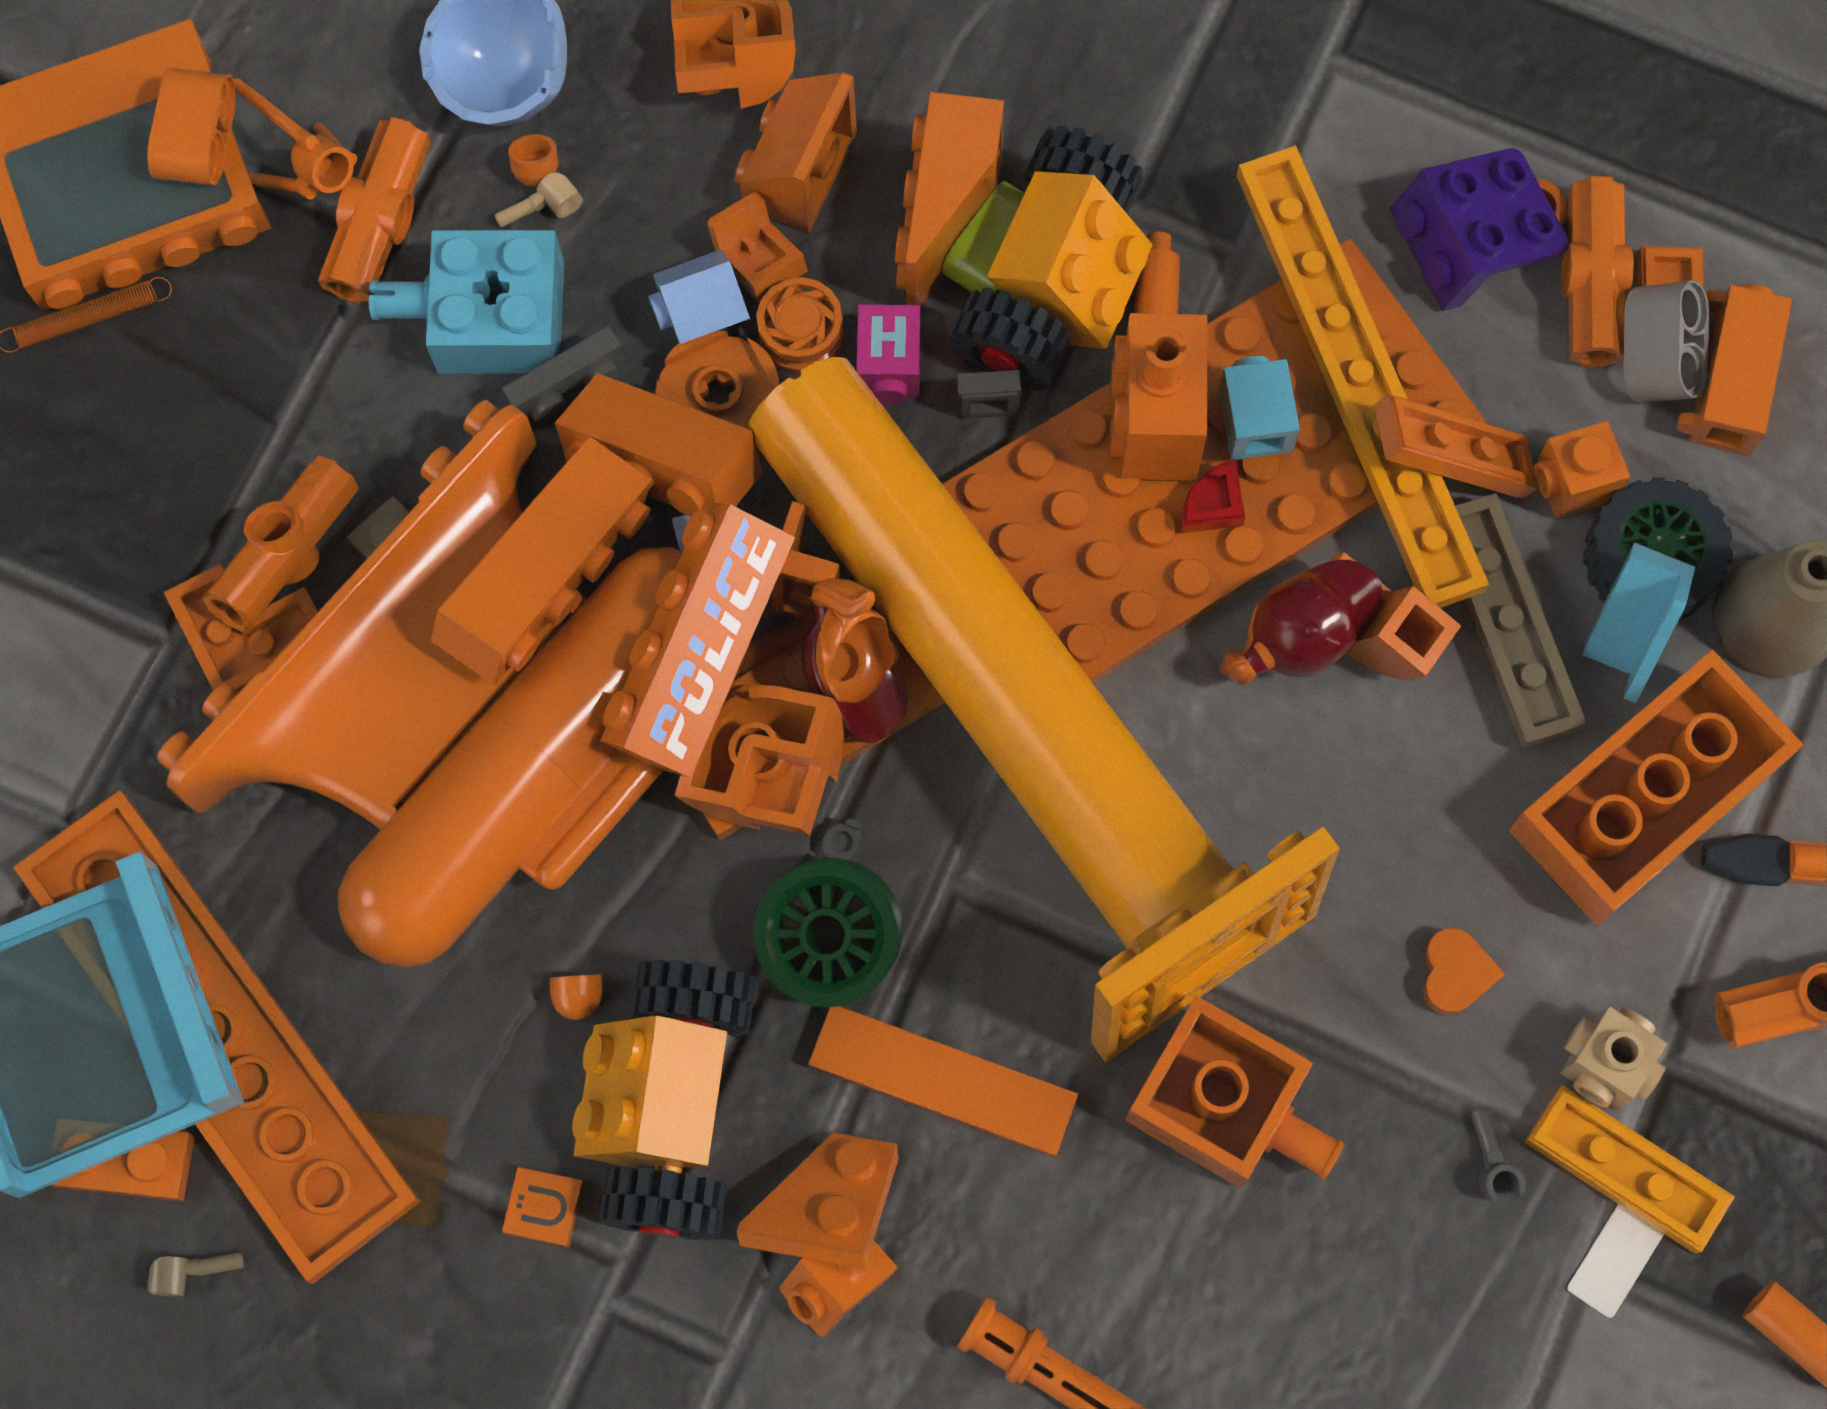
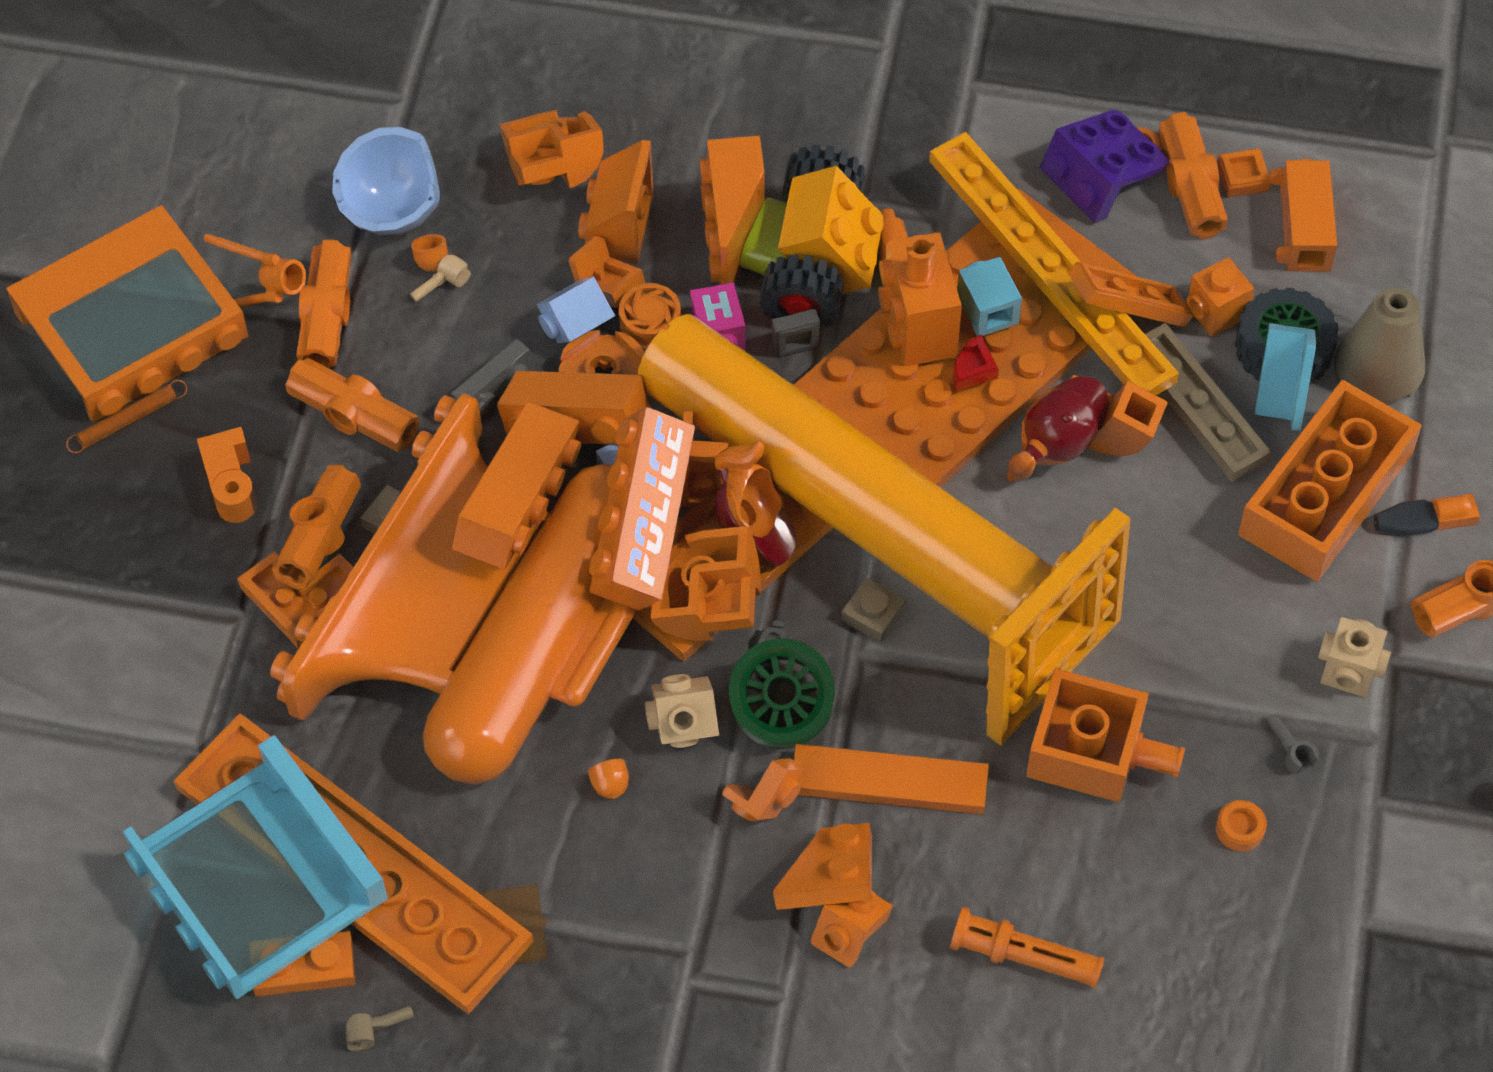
camera: 15 degrees left, 15 degrees down
(187, 433) = (230, 486): none -> orange leg
(191, 126) = (184, 267): orange beam -> none
(376, 367) = (352, 404): none -> orange piece
(457, 298) = (422, 342): medium azure brick -> none
(543, 1207) = (624, 925): orange tile -> none
(656, 1097) = (692, 827): brick -> none
(692, 921) = (682, 710): none -> tan brick
(784, 1072) = (775, 791): none -> orange bracket
(987, 826) = (873, 609): none -> dark tan plate
(1393, 1261) = (1241, 825): none -> orange tile
(1458, 972) = (1230, 631): orange tile -> none
(1615, 1261) = (1396, 788): white sticker -> none
(1629, 1169) = (1386, 731): light orange tile -> none
(1666, 342) = (1253, 205): light grey beam -> none

